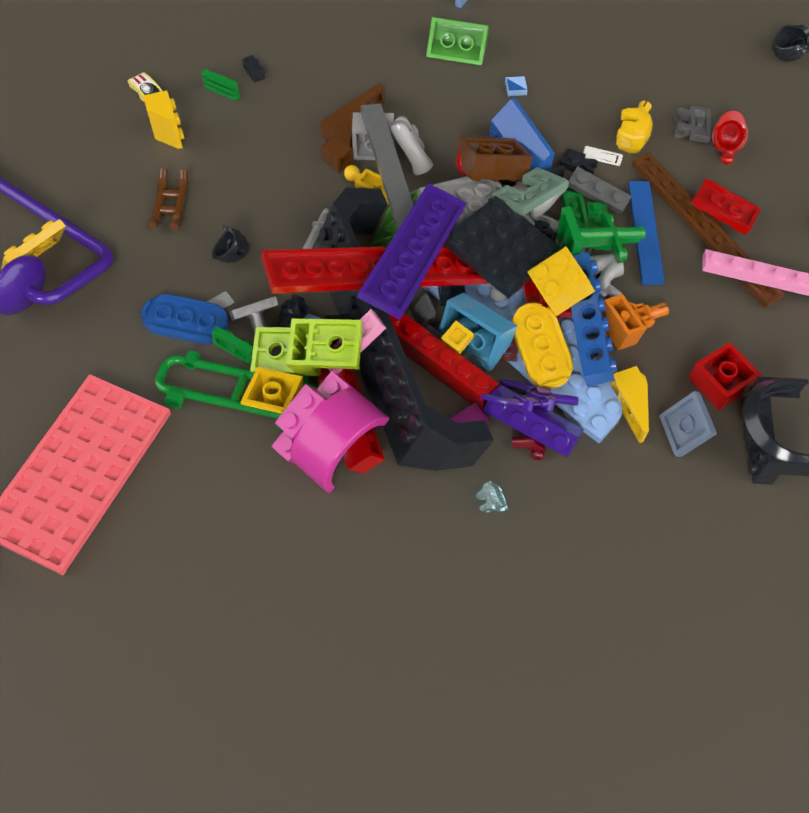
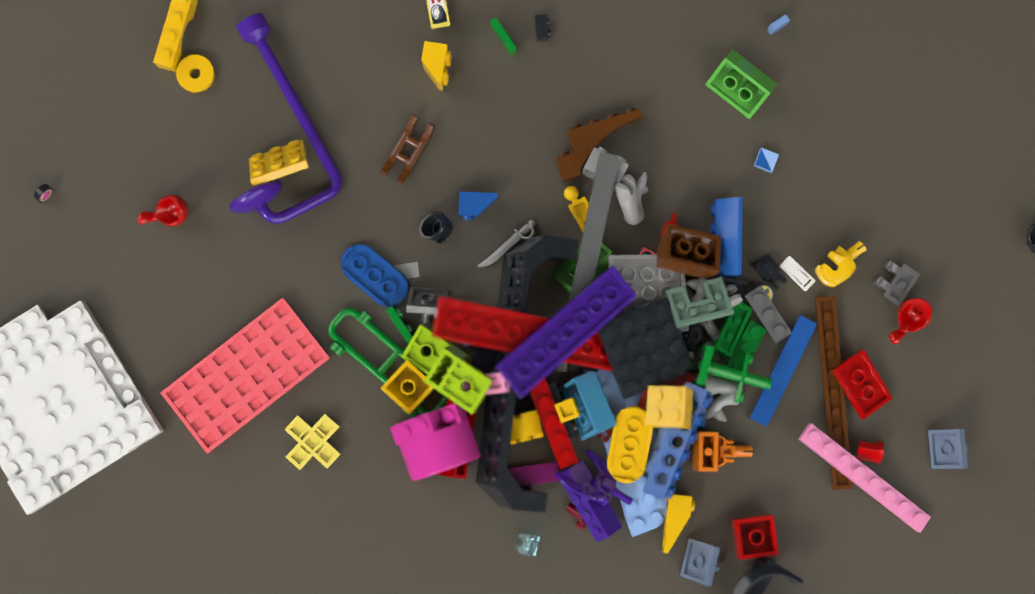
camera: 25 degrees right, 25 degrees up
(187, 504) = (312, 441): none -> light yellow plate
(261, 214) = (475, 204): none -> blue slope
(427, 374) = (525, 426): none -> yellow brick
(777, 256) = (870, 451): none -> red tile

